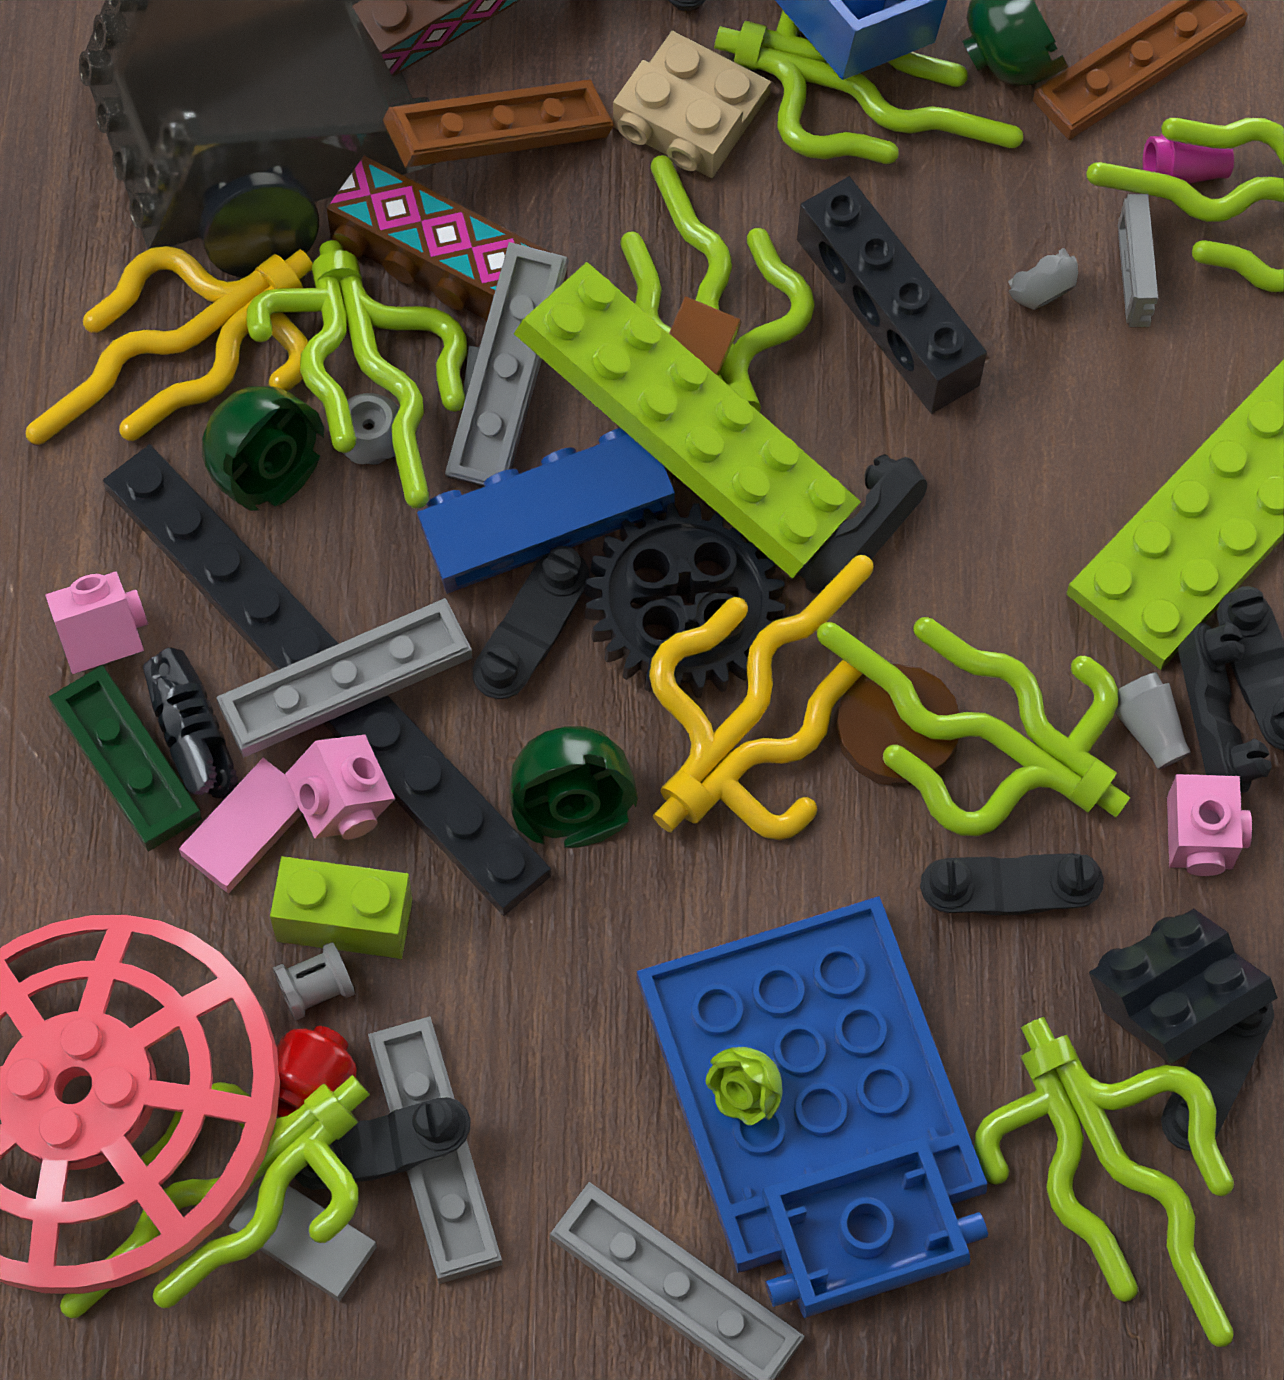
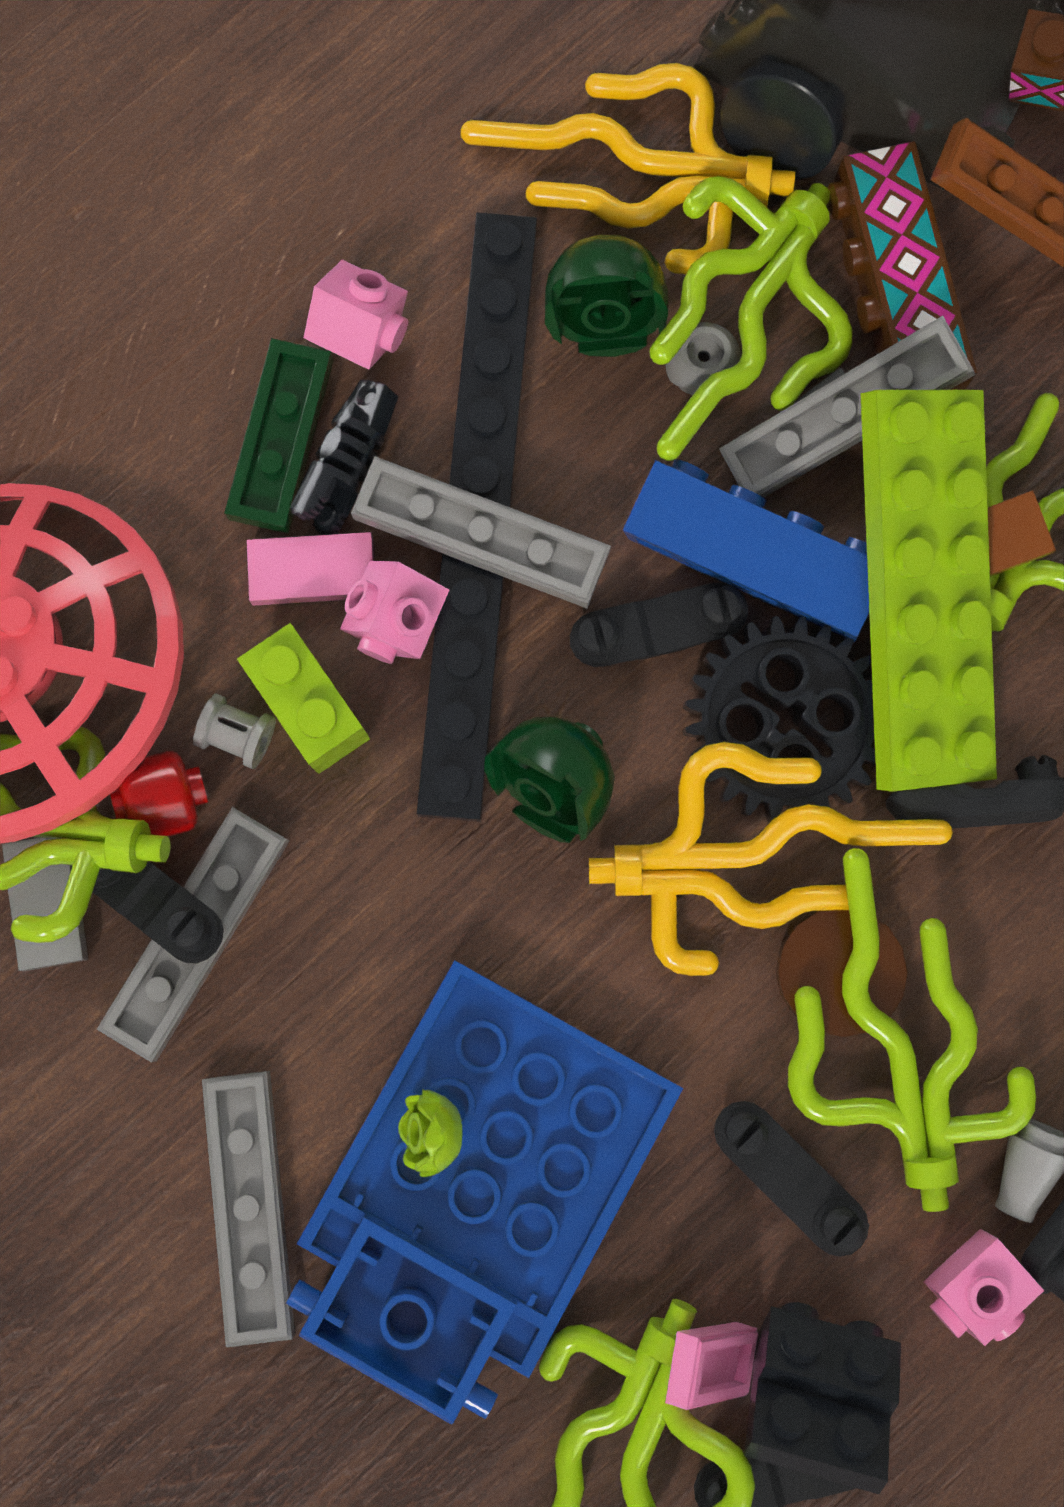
camera: 50 degrees right, 15 degrees up
(1091, 1039) = (711, 1365): none -> bright pink tile

